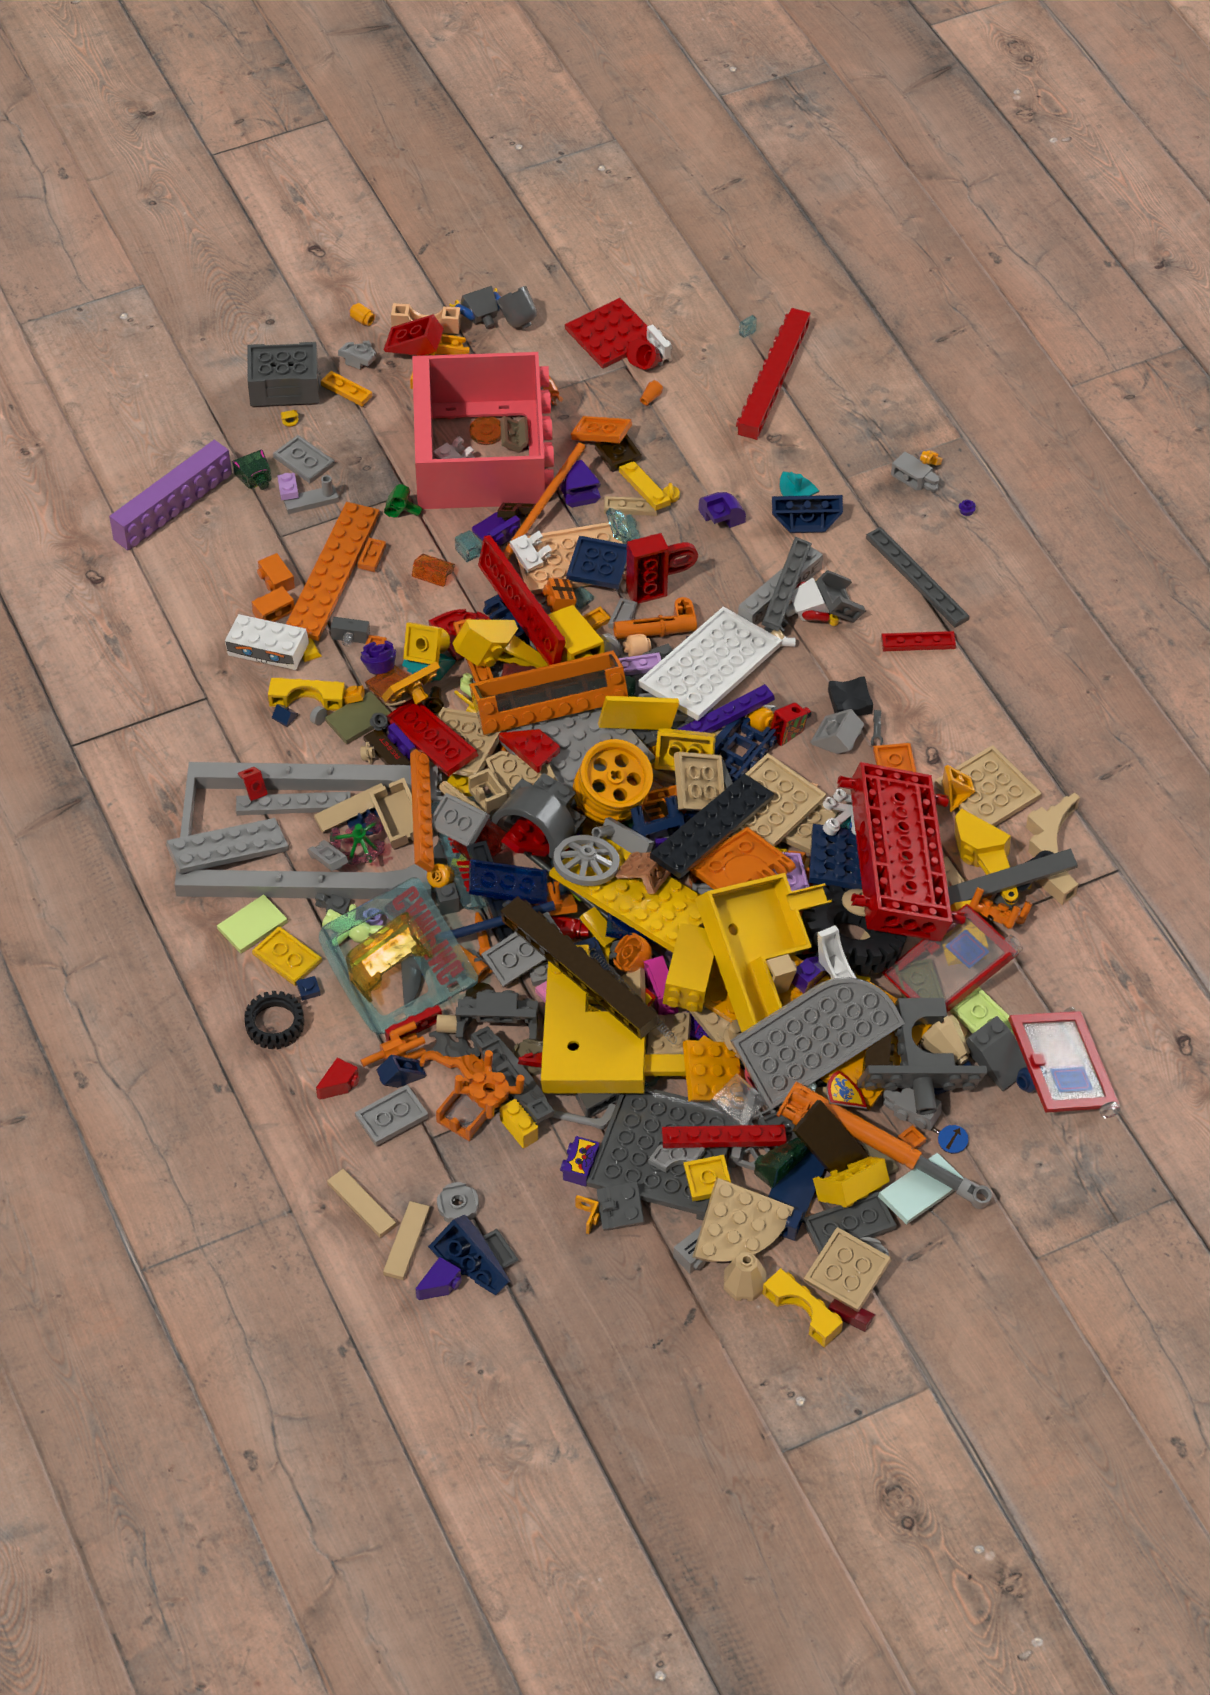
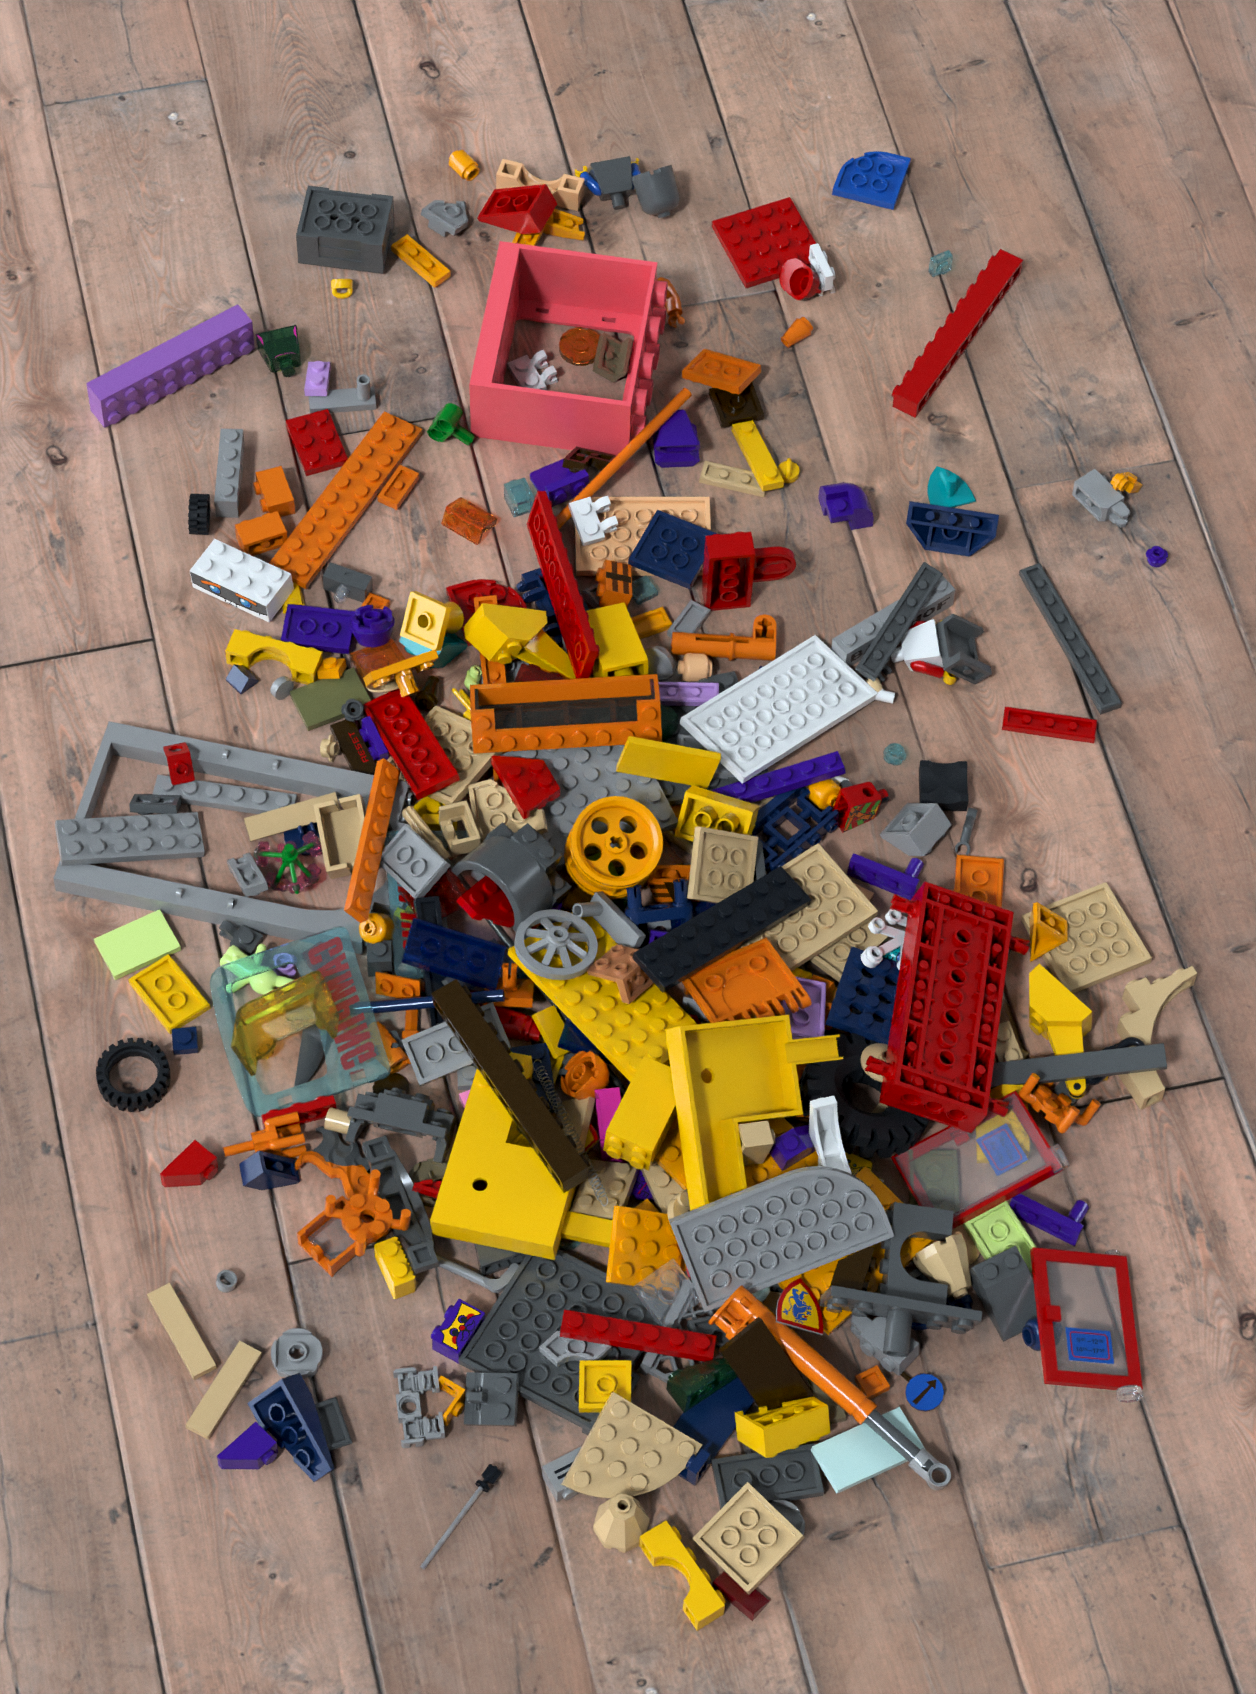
camera: 10 degrees right, 5 degrees up
(221, 599) = (199, 514): none -> black tyre
(236, 566) = (229, 473): none -> light grey brick
(240, 817) = (150, 803): none -> dark grey plate
(298, 533) = (316, 442): none -> red plate
(303, 459) = (346, 345): light grey tile -> none
(336, 666) = (318, 628): none -> dark purple plate
(388, 1158) = (229, 1279): none -> light grey hinge
(391, 1115) = (244, 1225): light grey plate -> none
(466, 916) = (398, 986): none -> orange hinge
(554, 1212) = (409, 1390): none -> light grey piece
(622, 527) = (712, 503): clear light blue plate -> none
(633, 1264) = (490, 1476): none -> piece
(680, 274) = (872, 178): none -> blue plate
(806, 682) = (894, 749): none -> clear light blue plate
(823, 771) = (886, 878): none -> dark purple piece
(1016, 996) = (1050, 1221): none -> dark purple piece

